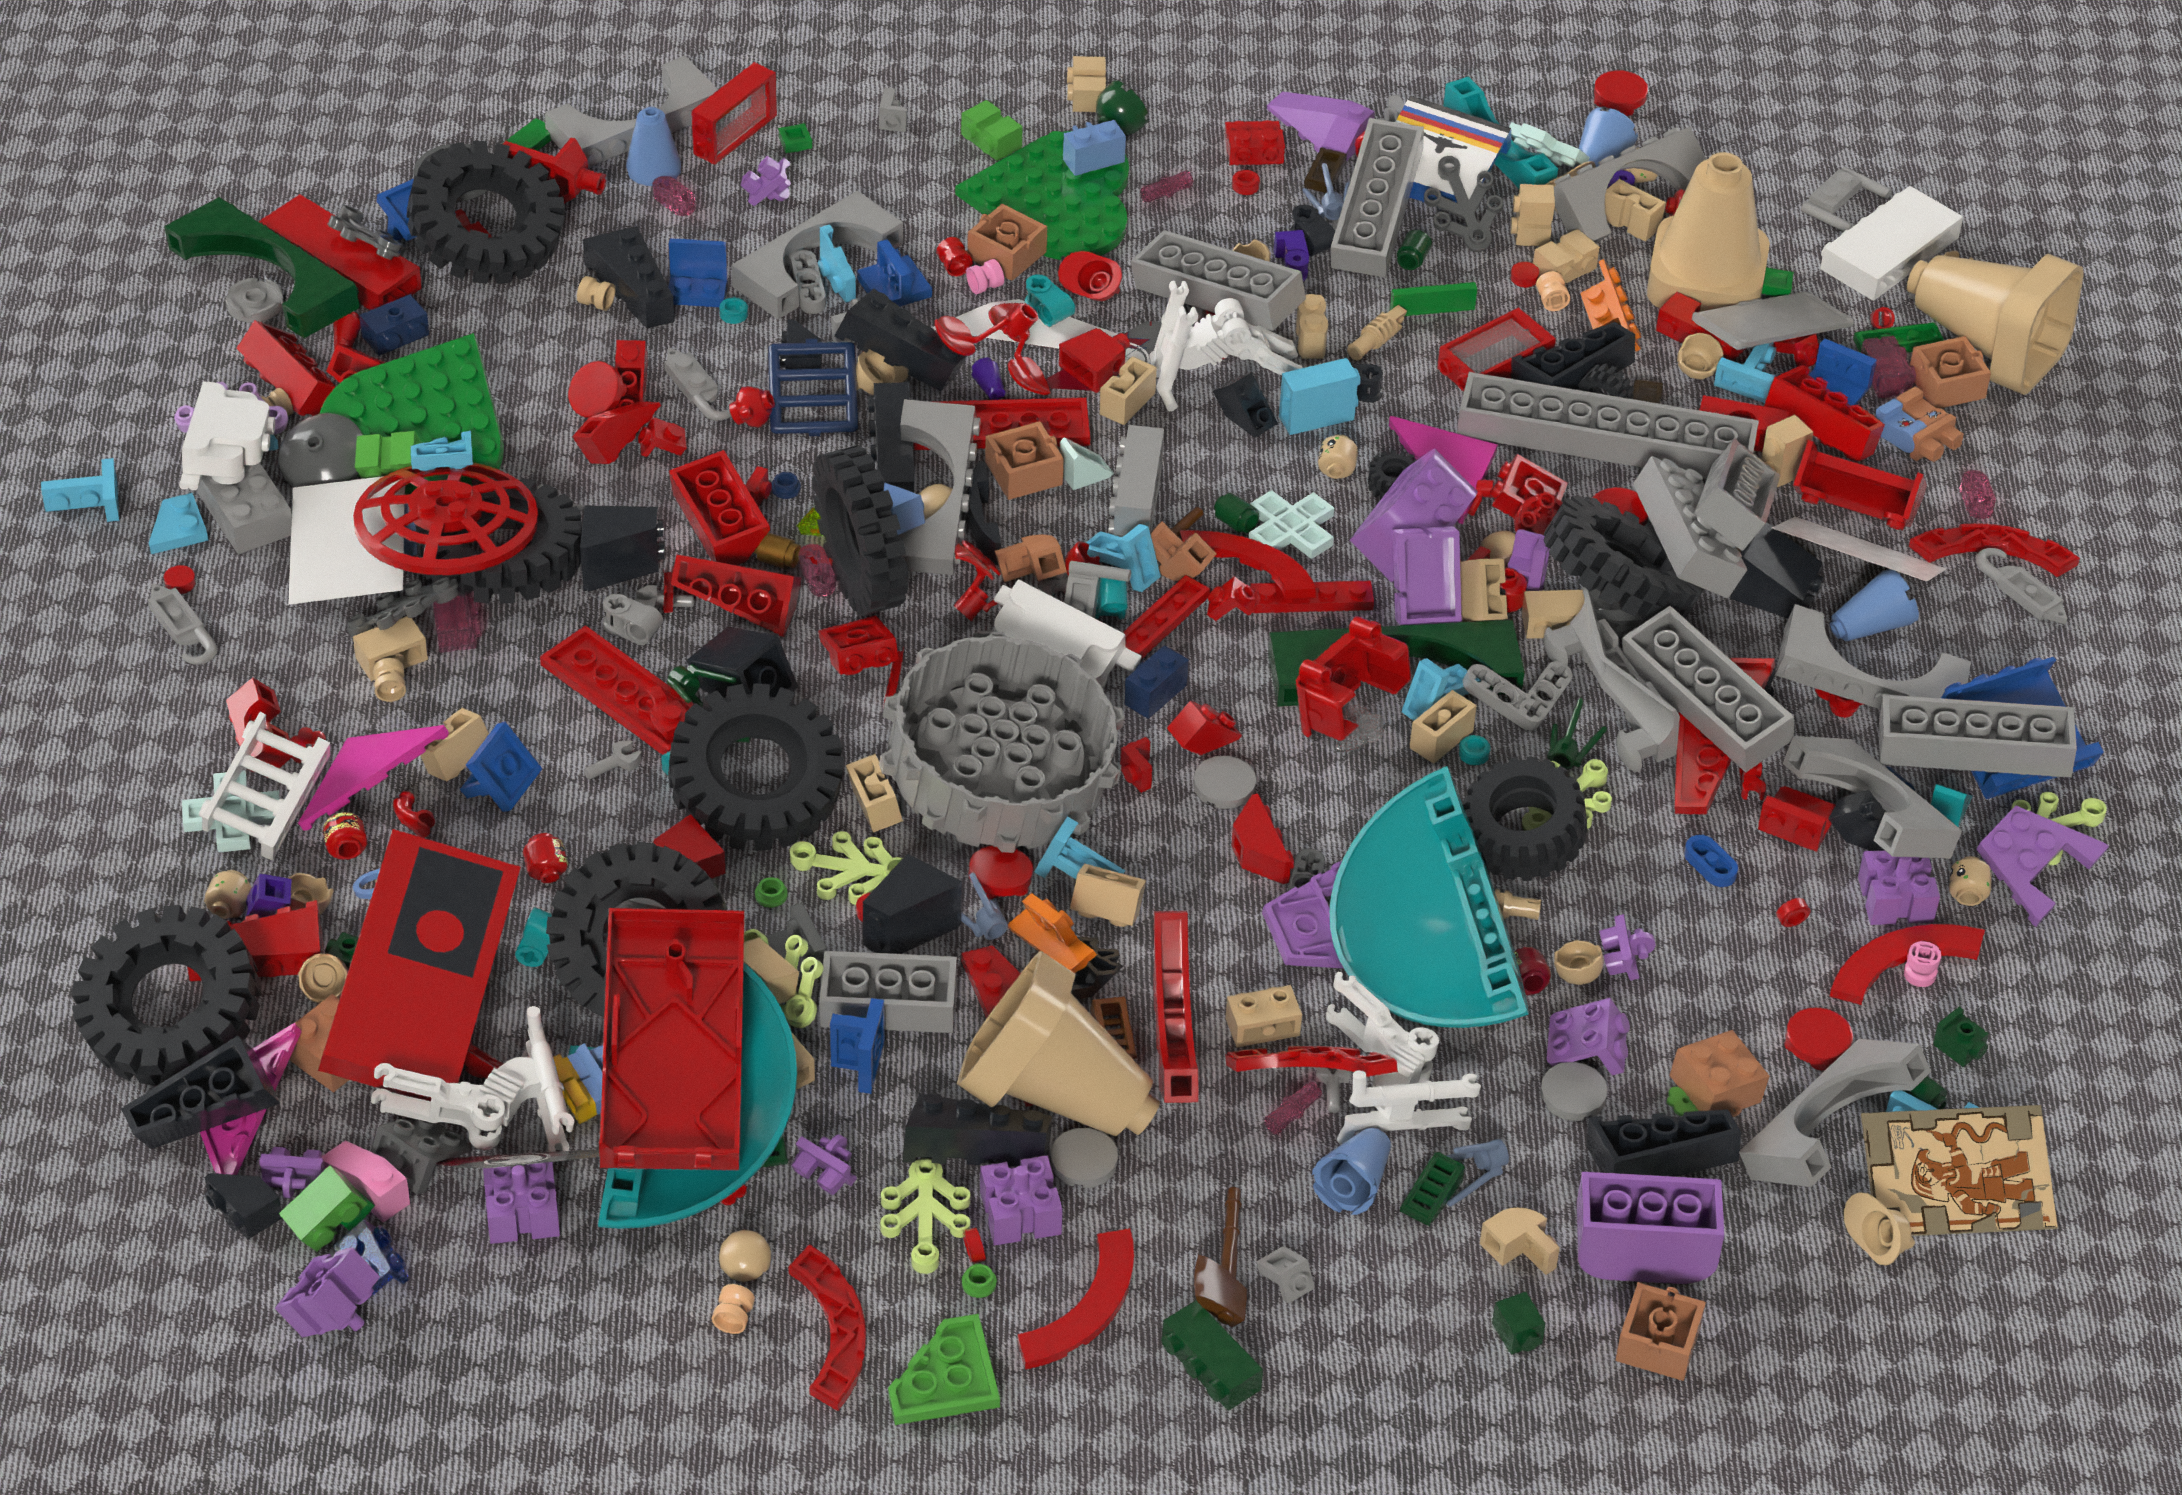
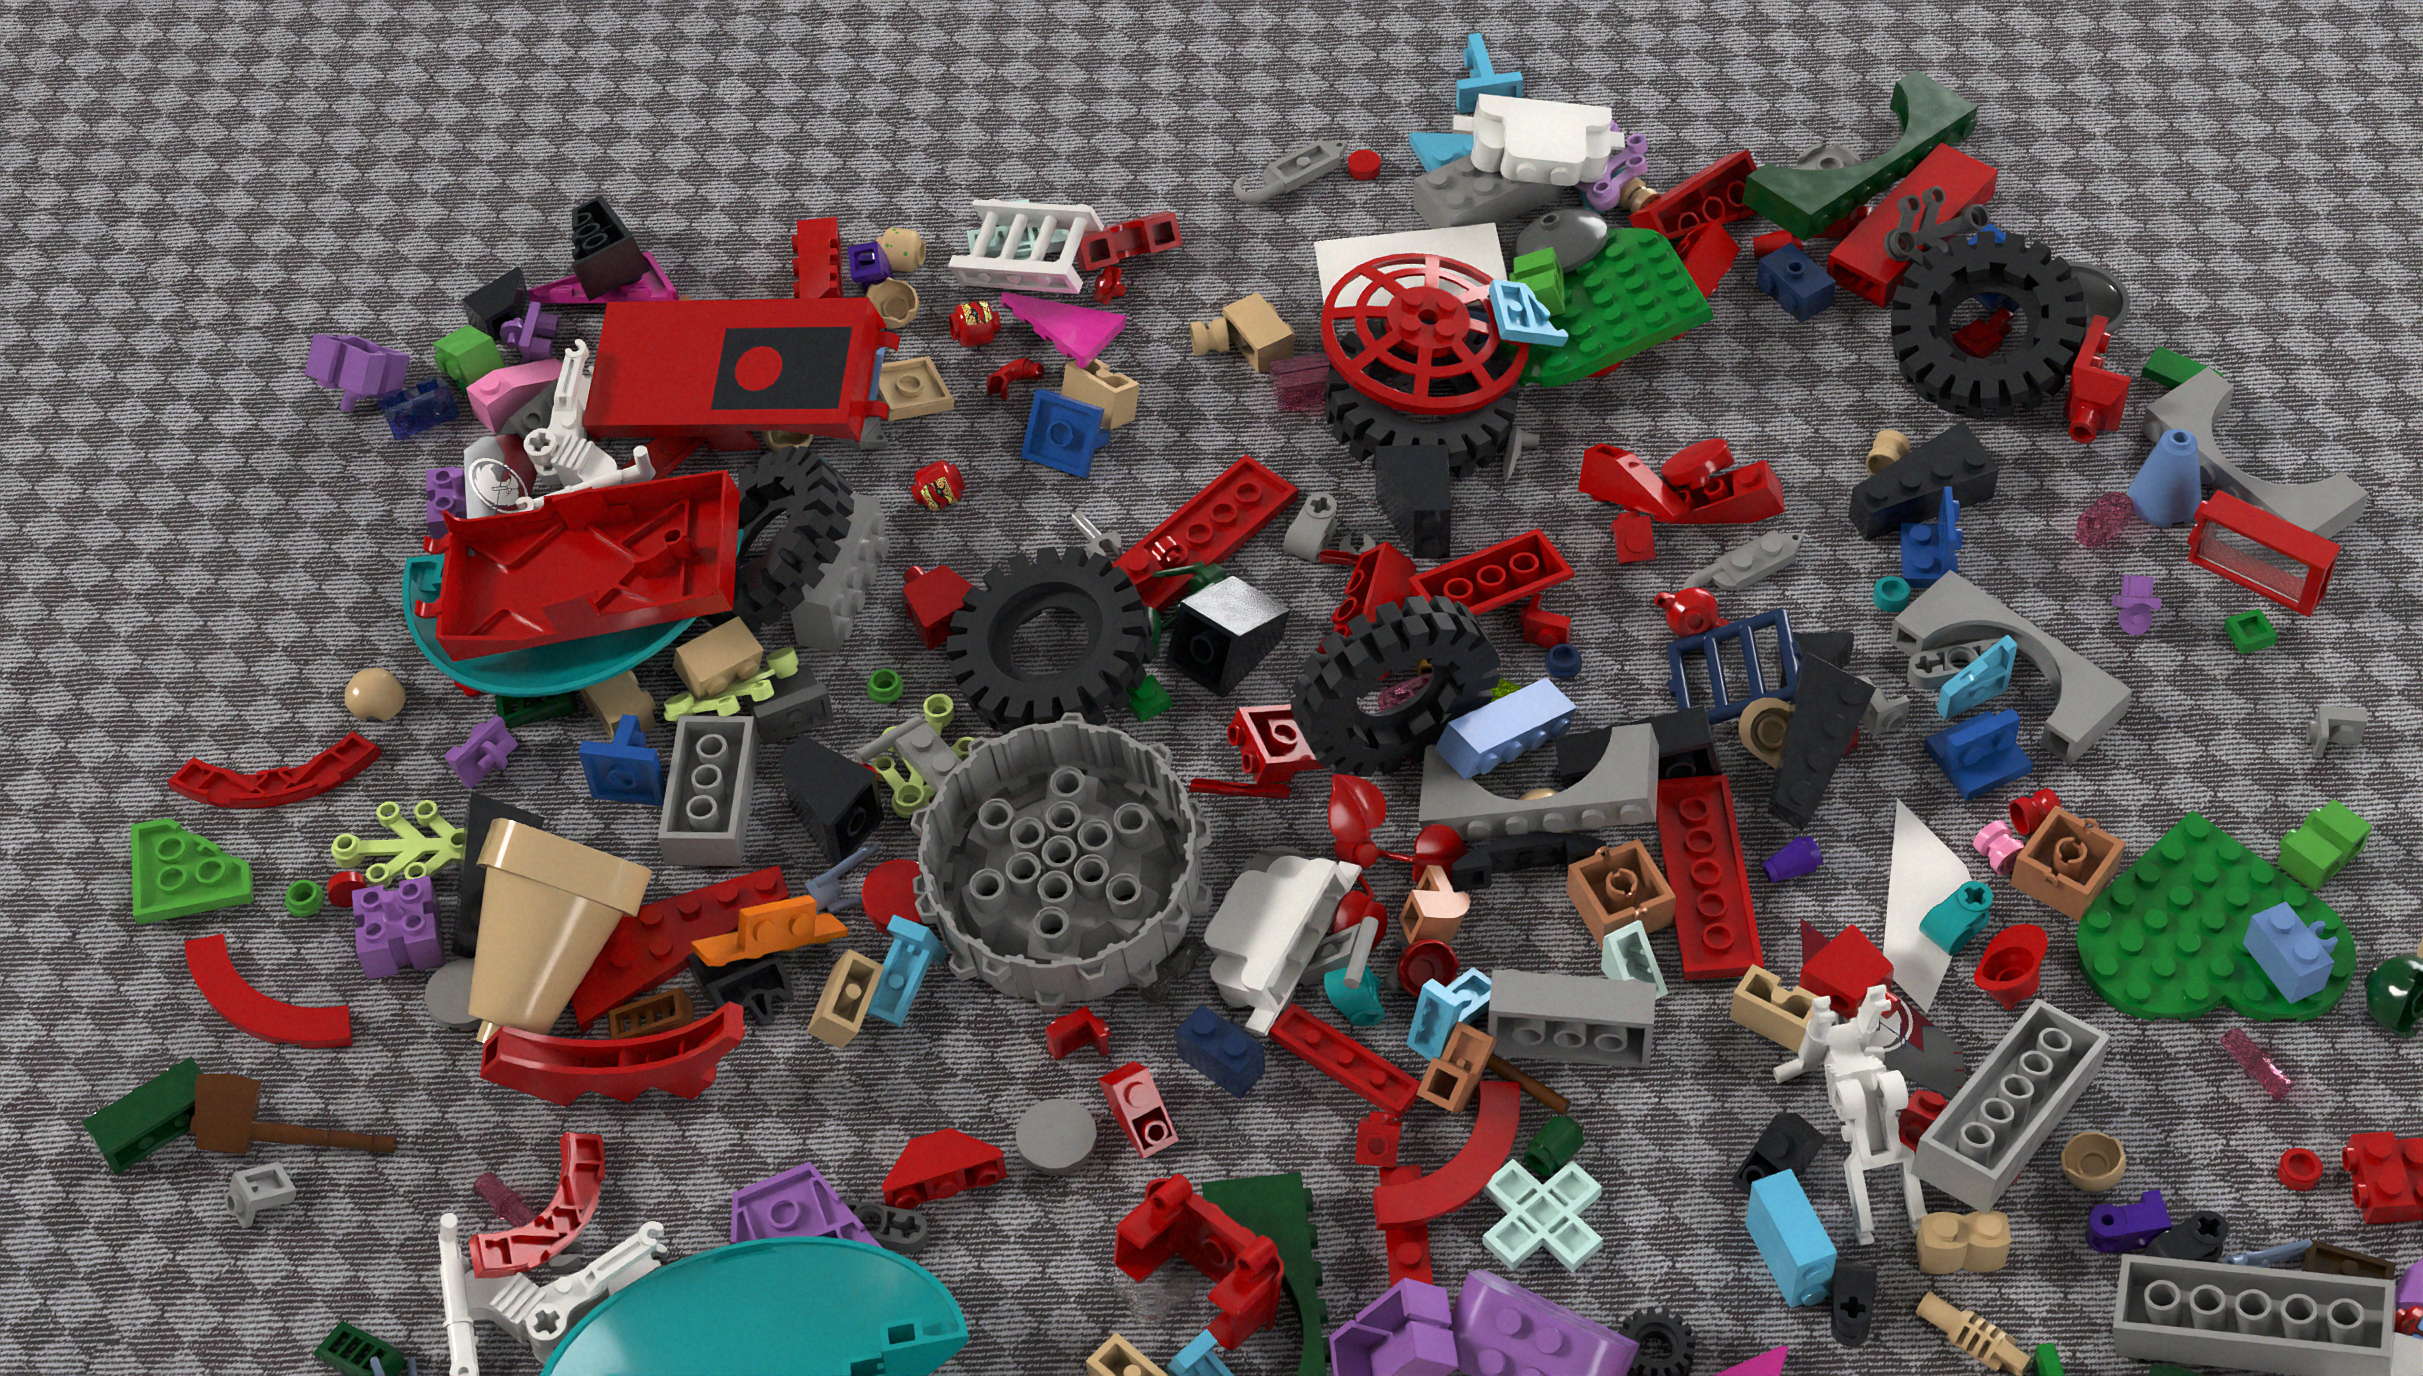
camera: 95 degrees right, 5 degrees up
(109, 982) = (717, 246): black tyre -> none
(395, 608) = (1291, 320): dark grey plant -> none
(733, 1309) = (300, 685): light nougat wheel -> none
(859, 855) = (921, 749): none -> light grey plate
(1013, 320) = (1801, 900): red plant -> none
(1263, 1016) = (649, 1171): tan brick -> none
(1337, 456) = (1679, 1270): tan head -> none
(1353, 1172) = (386, 1261): medium blue cone -> none

